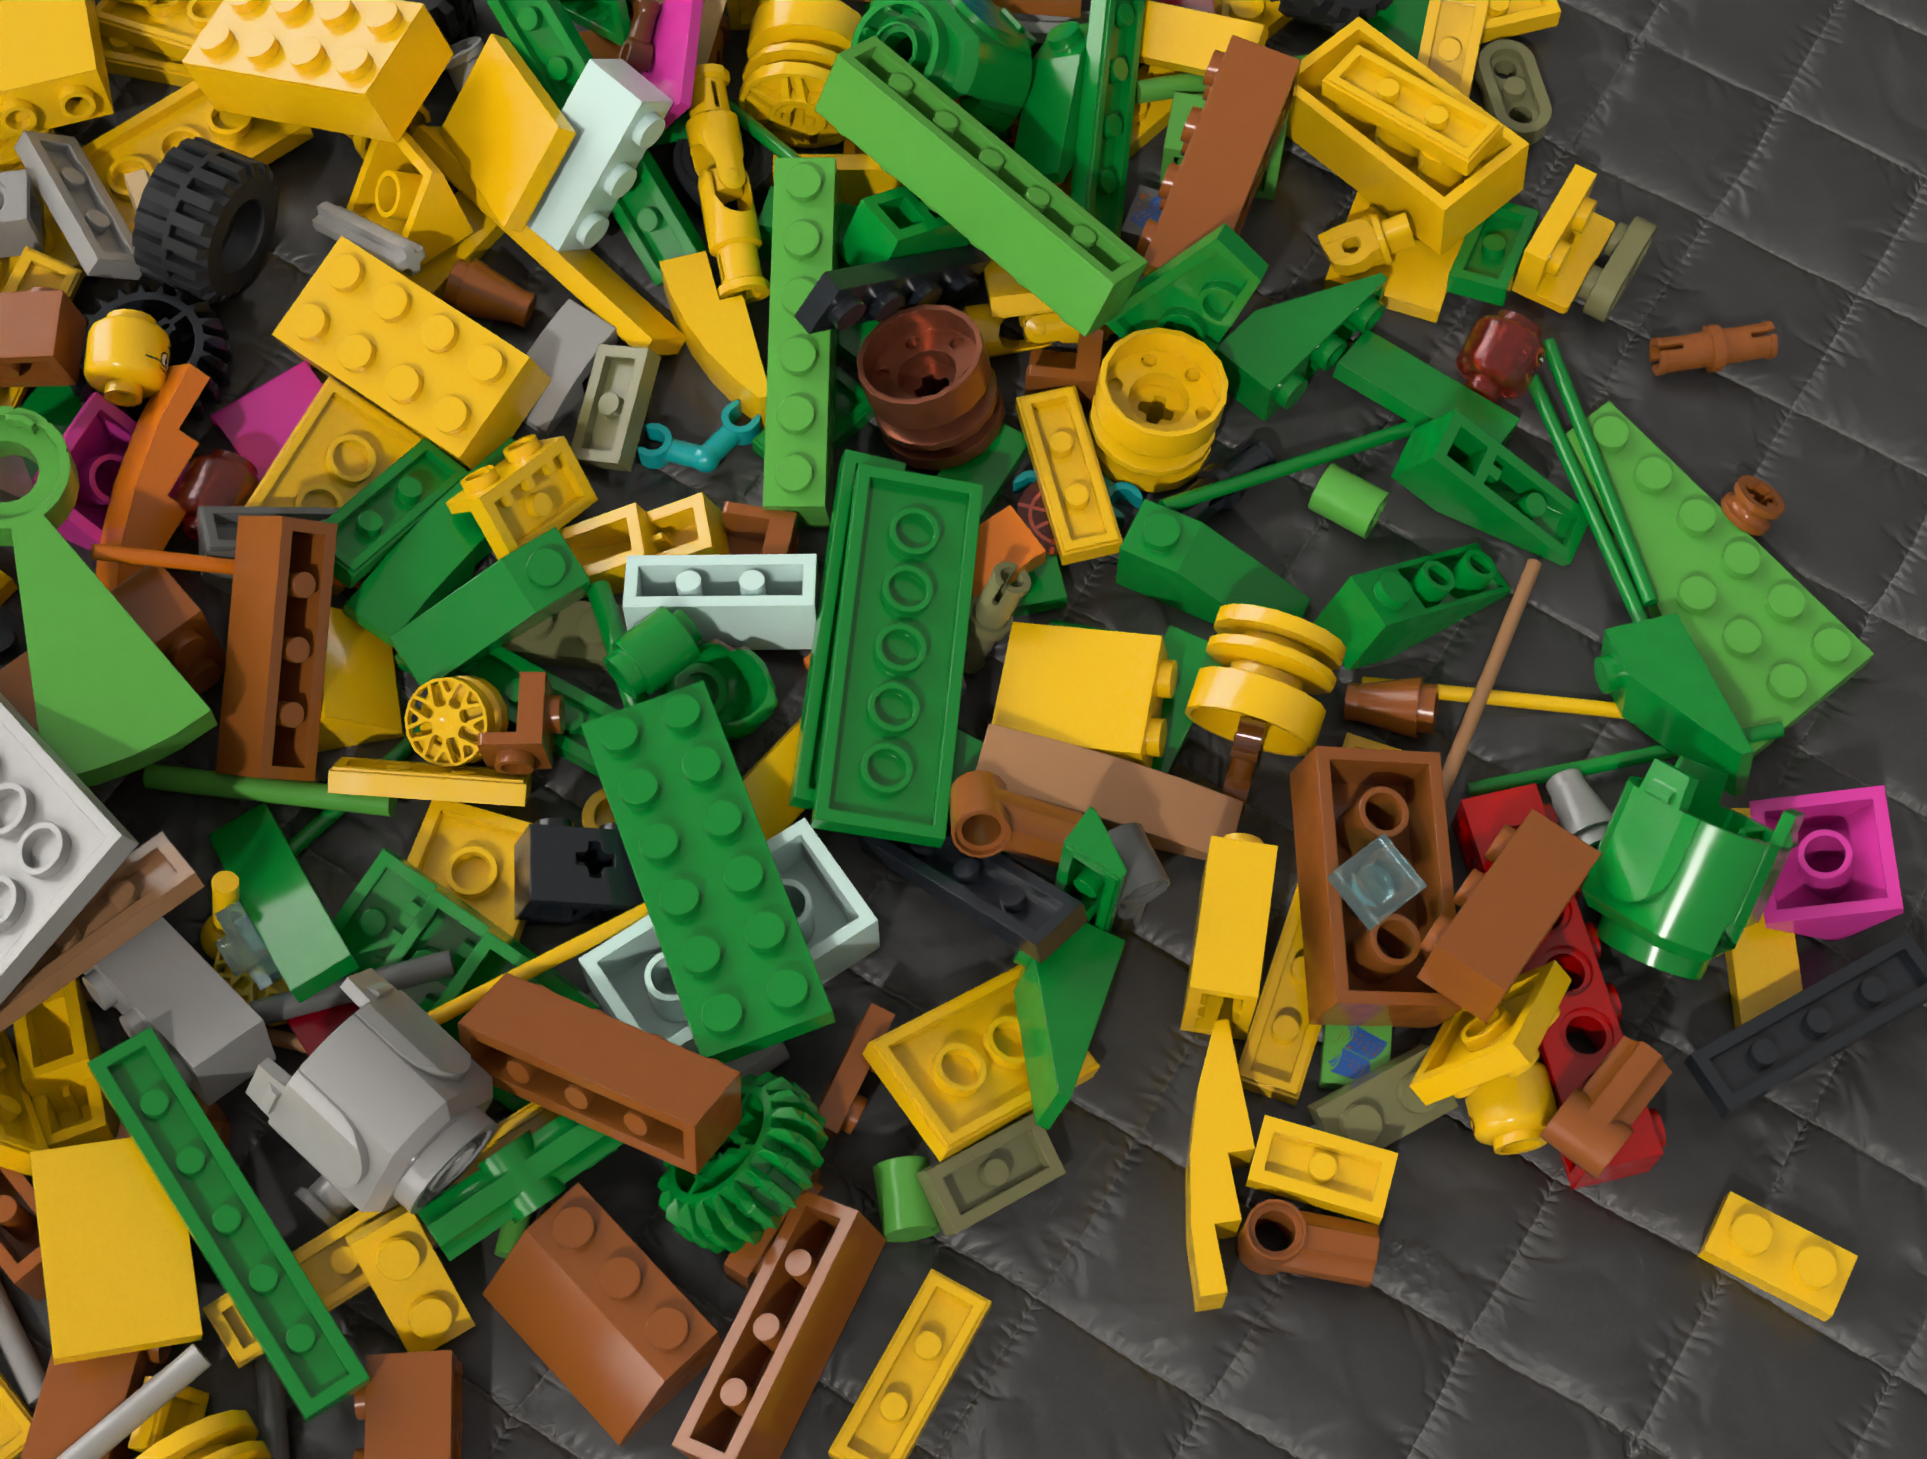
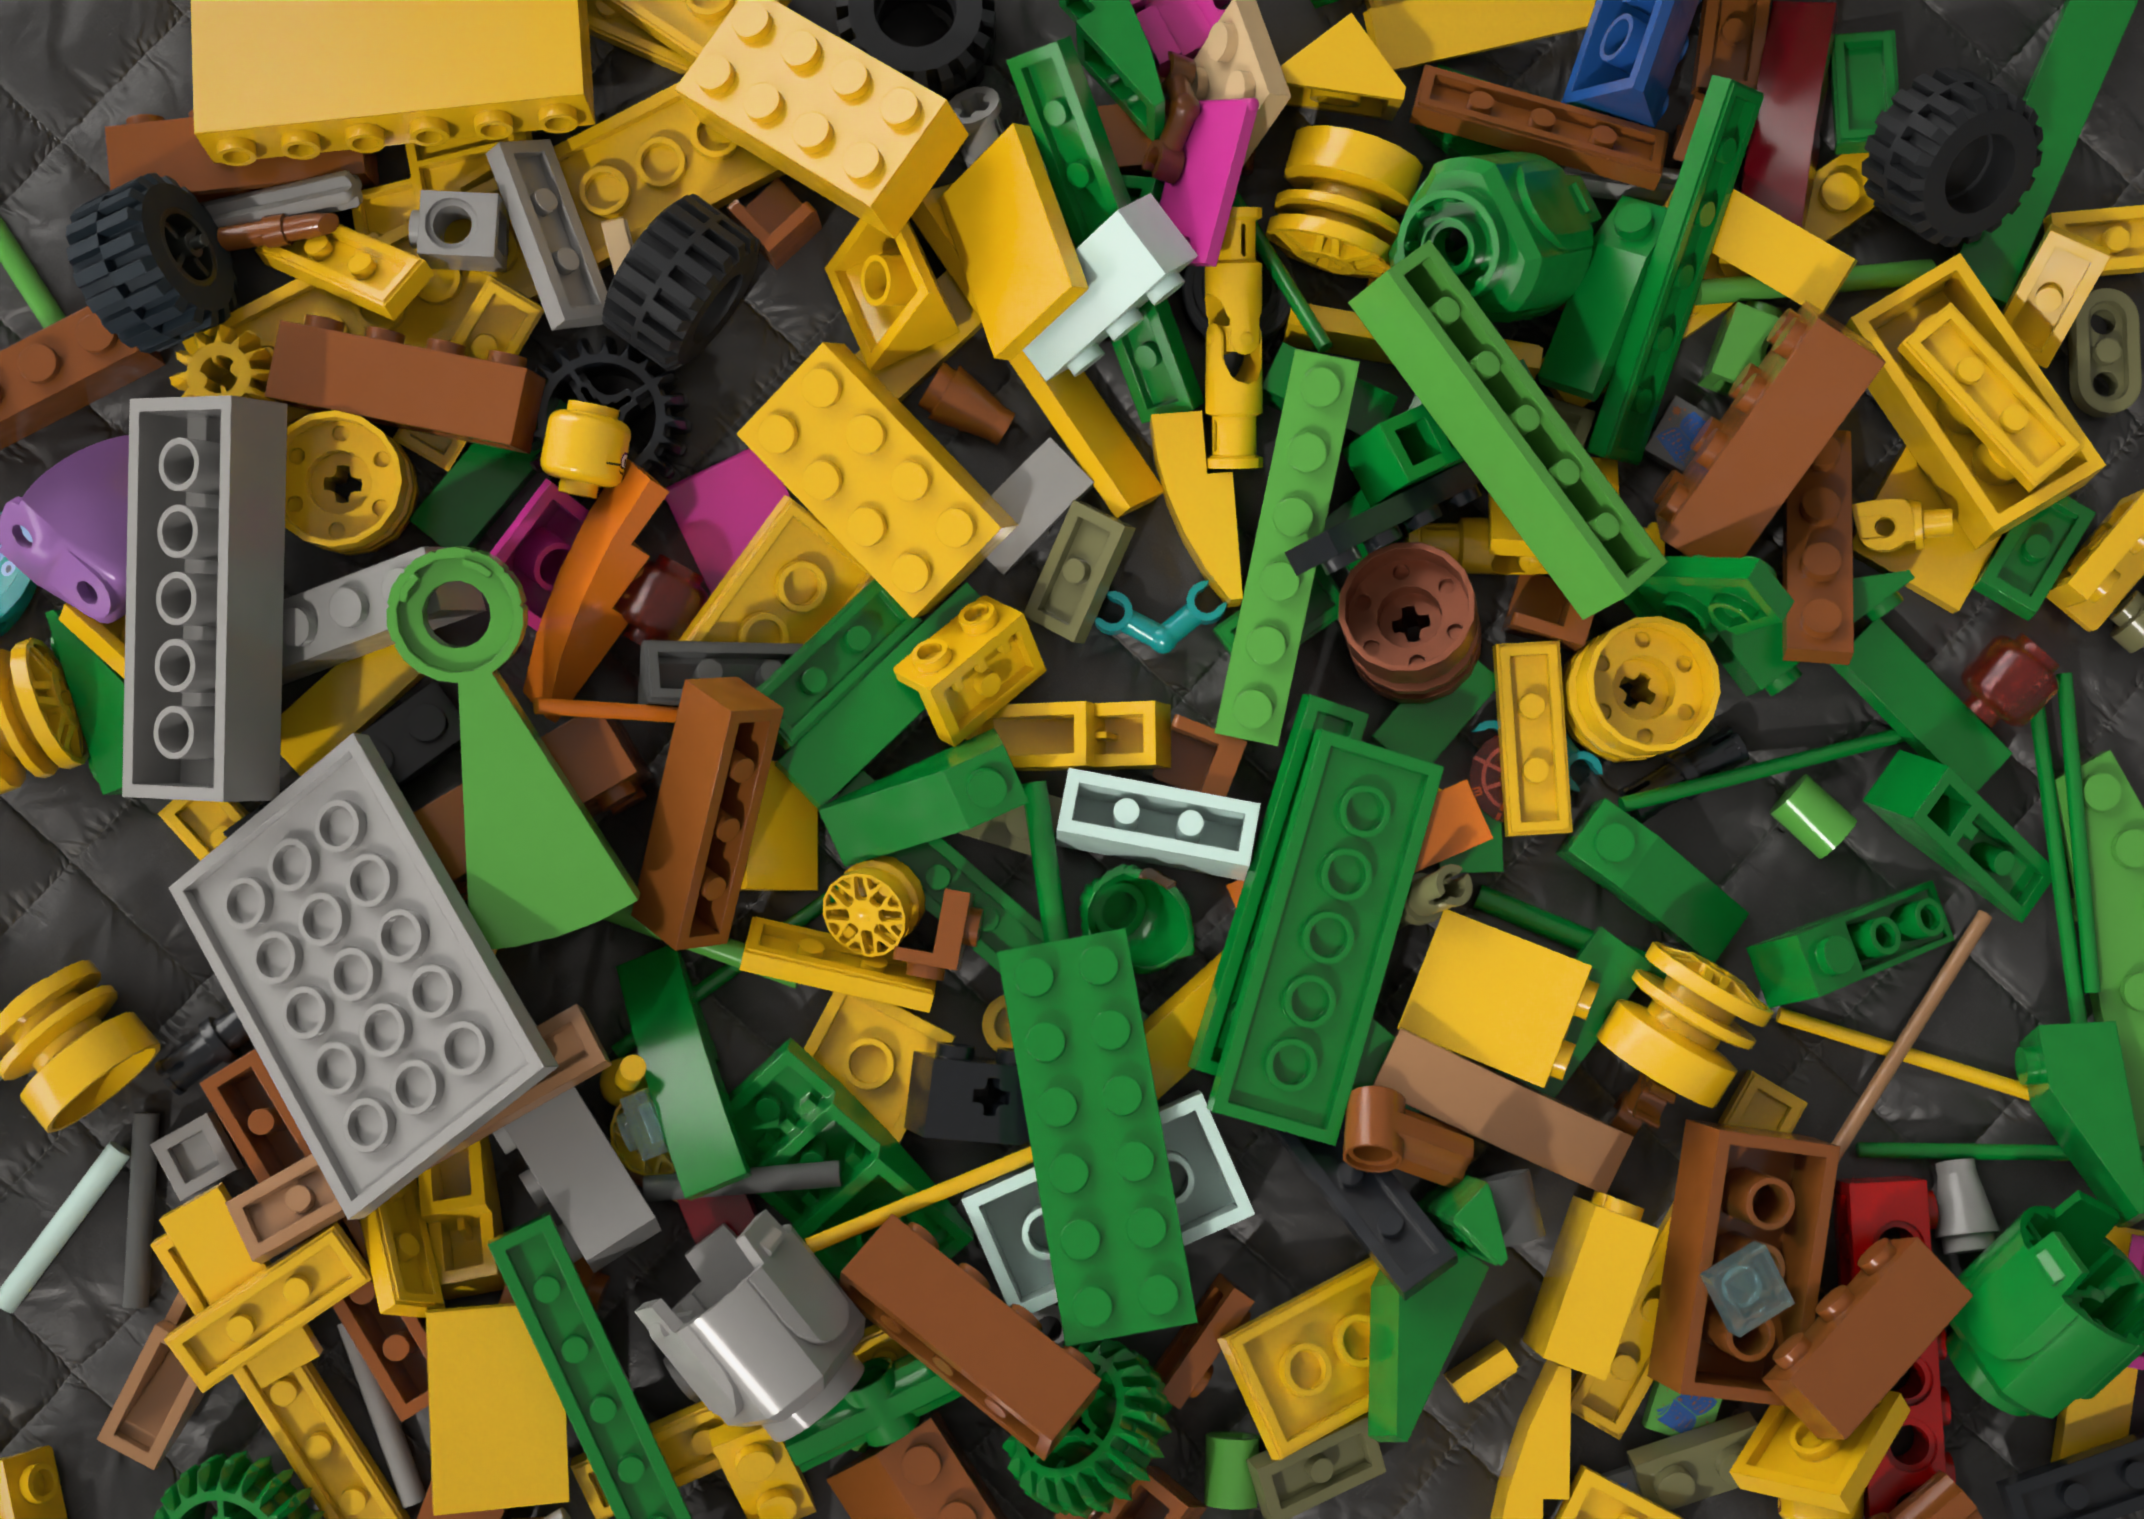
camera: 10 degrees right, 20 degrees up
(302, 180) = (777, 221): none -> dark orange panel
(375, 239) = (849, 326): light grey axle -> none
(653, 652) = (1080, 885): green brick -> none
(1141, 1053) = (1481, 1371): none -> yellow tile
(1296, 273) = (1820, 559): none -> dark orange plate
(1395, 705) = (1807, 1053): dark orange cone -> none

